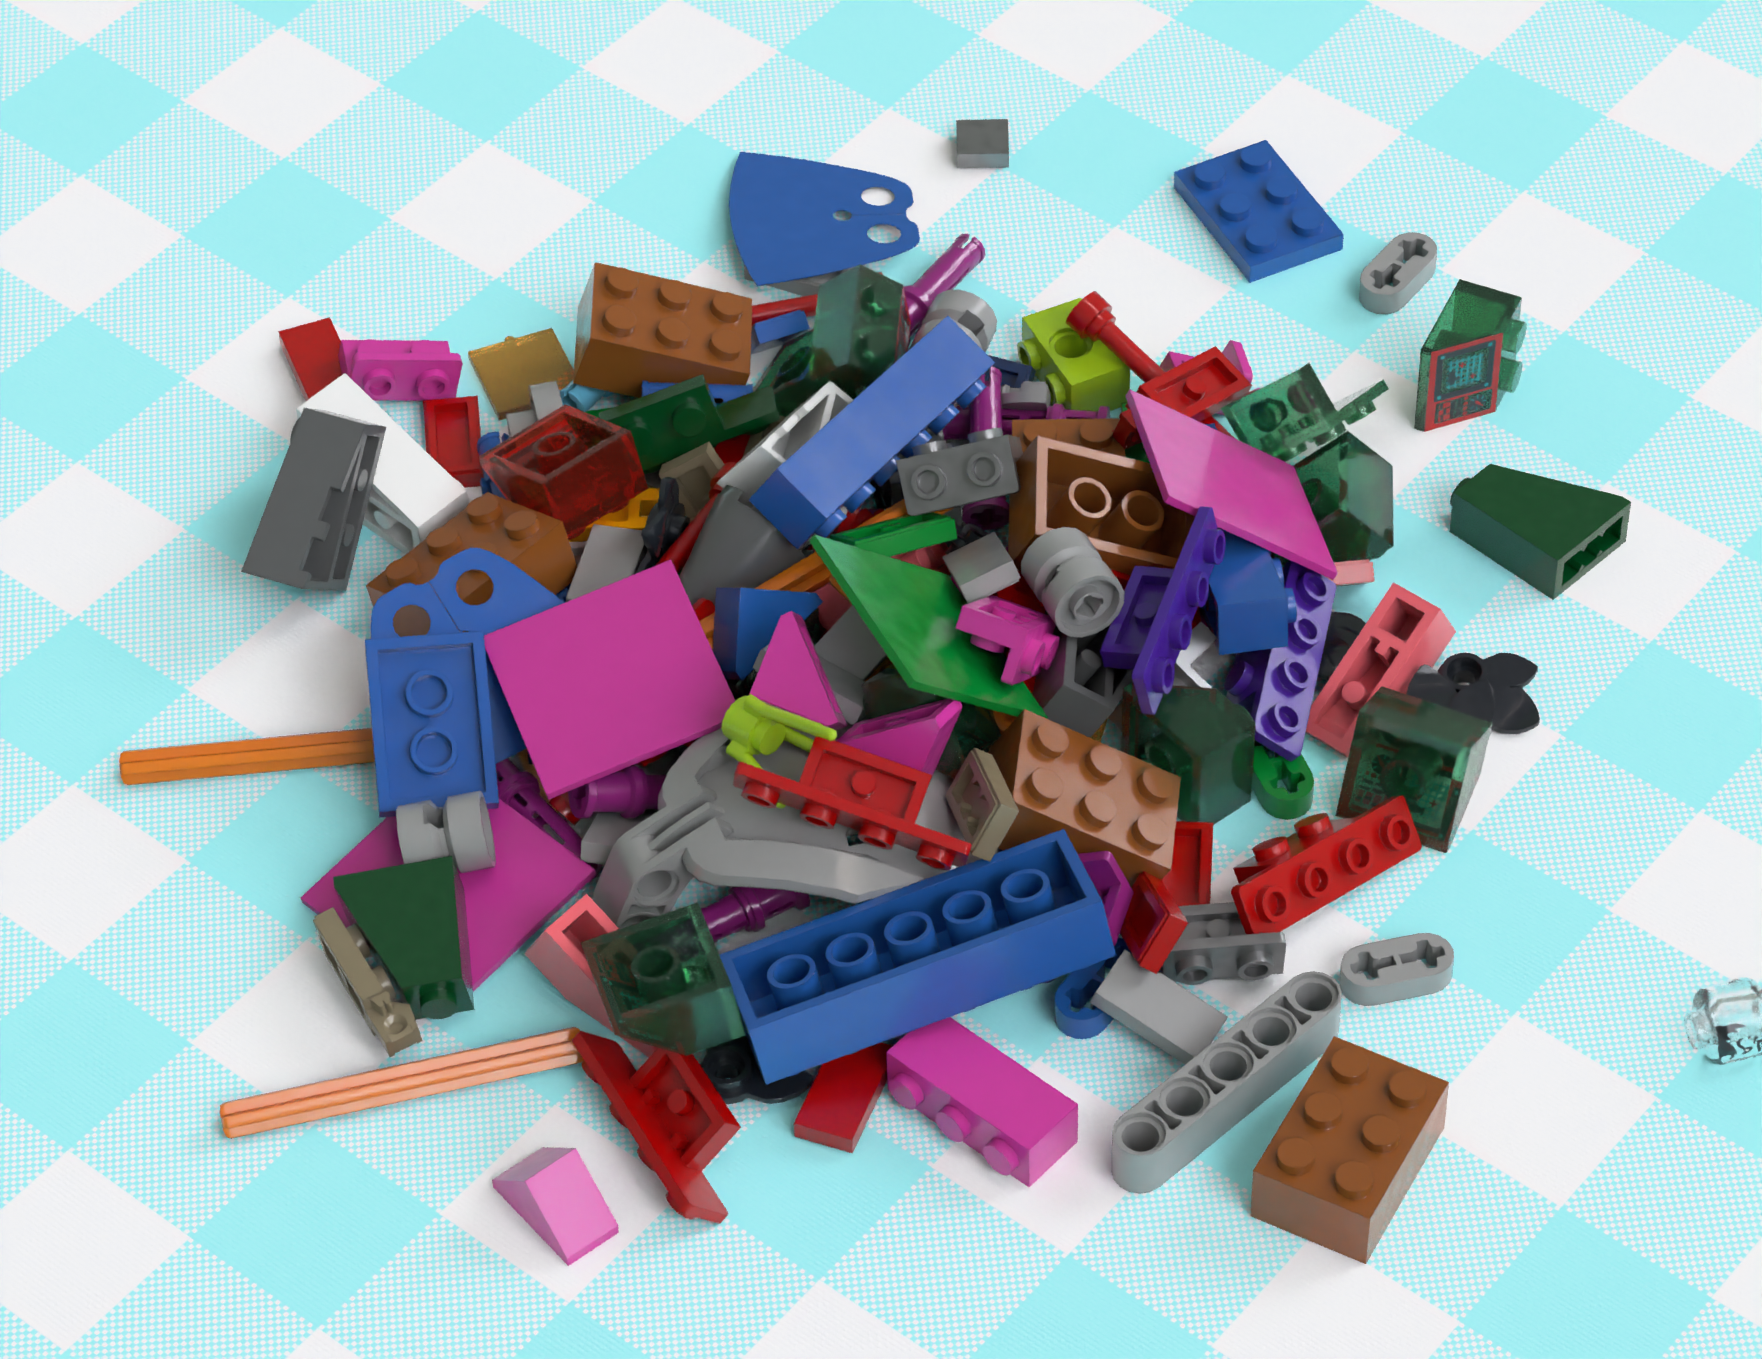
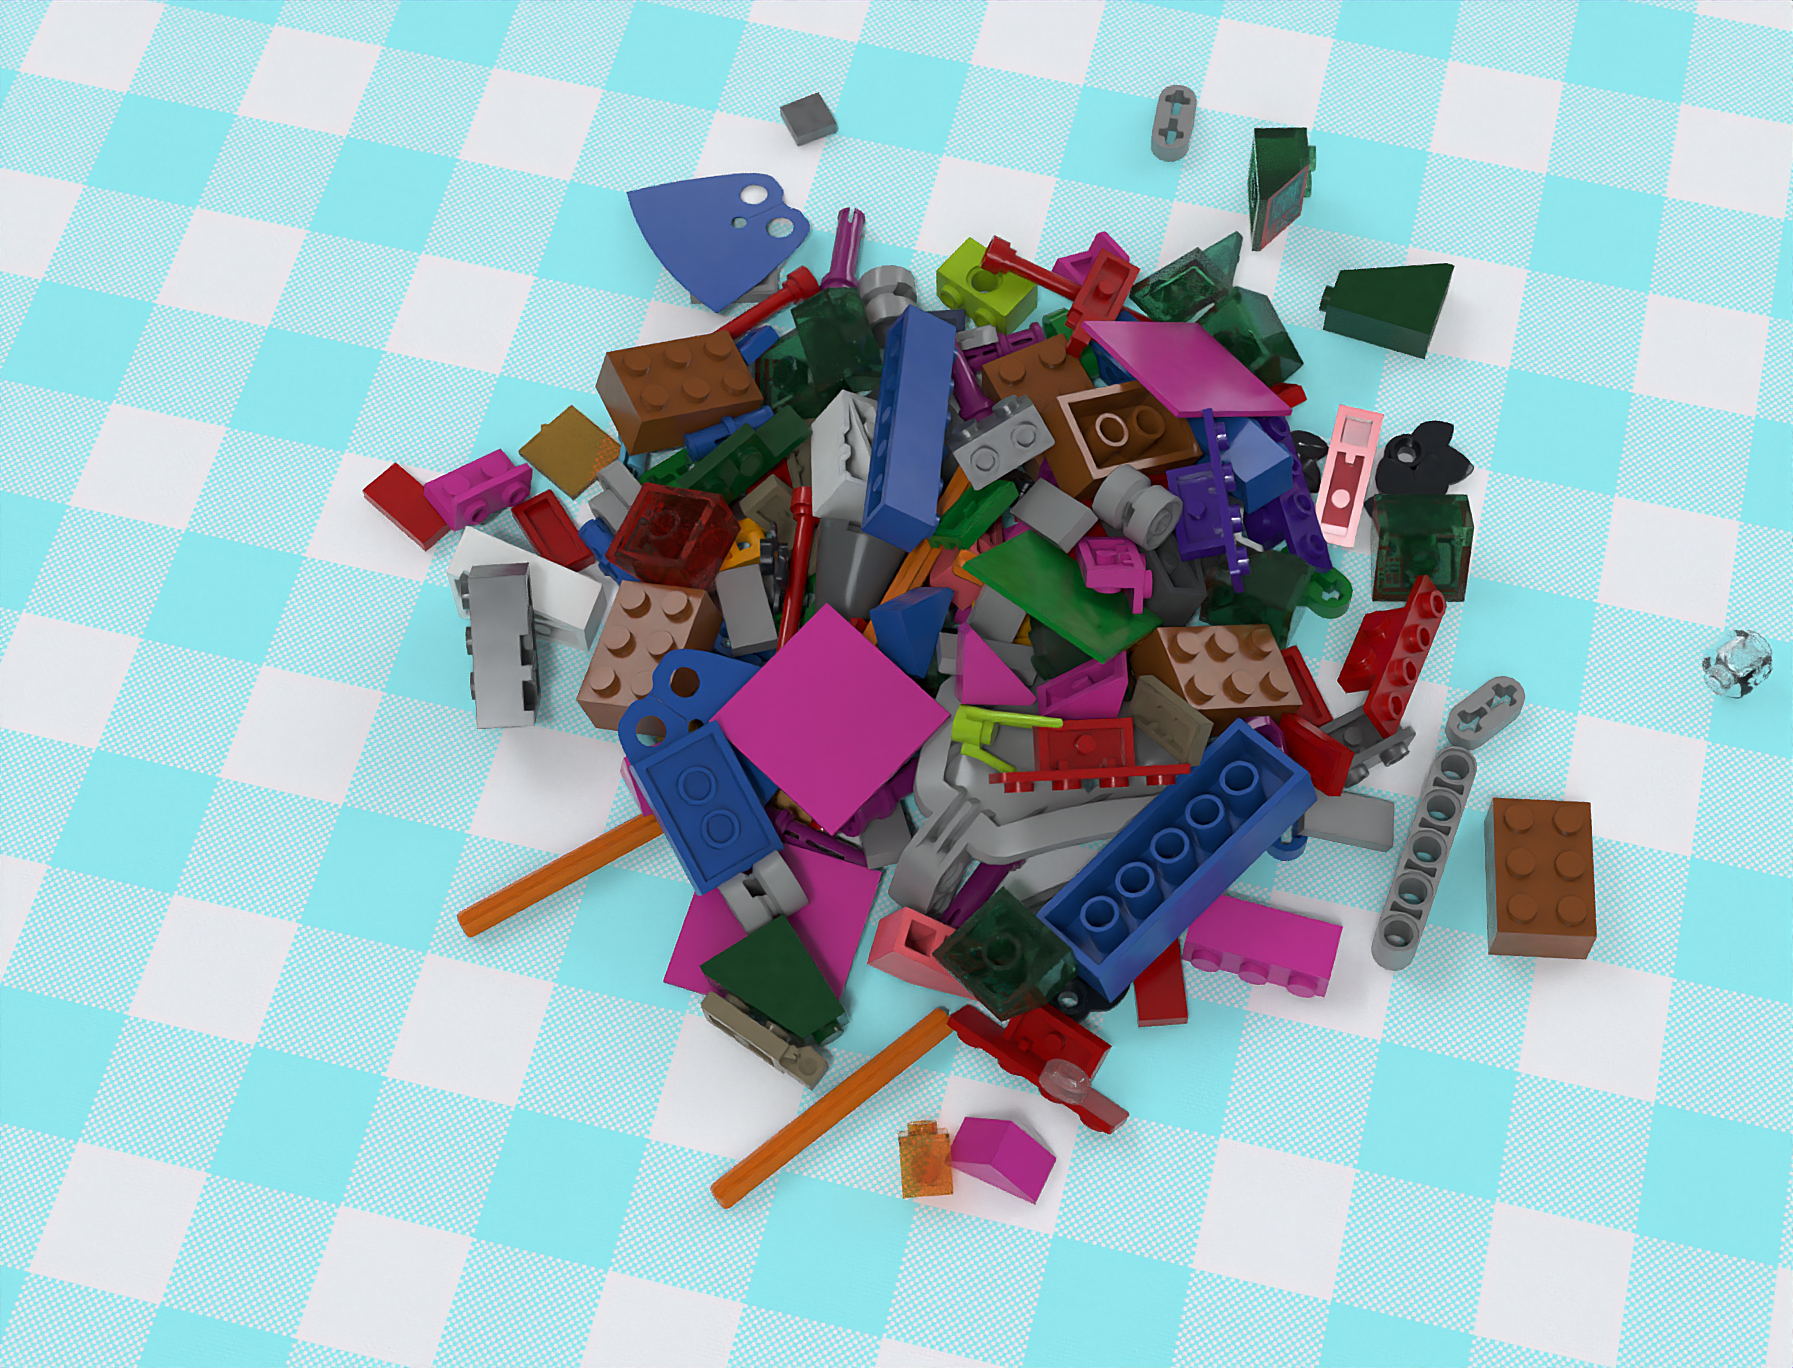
camera: 25 degrees left, 15 degrees up
(466, 1165) = (925, 1160): none -> clear orange bracket
(664, 1139) = (1065, 1081): none -> clear tile
(1258, 211) = (1043, 105): blue plate -> none

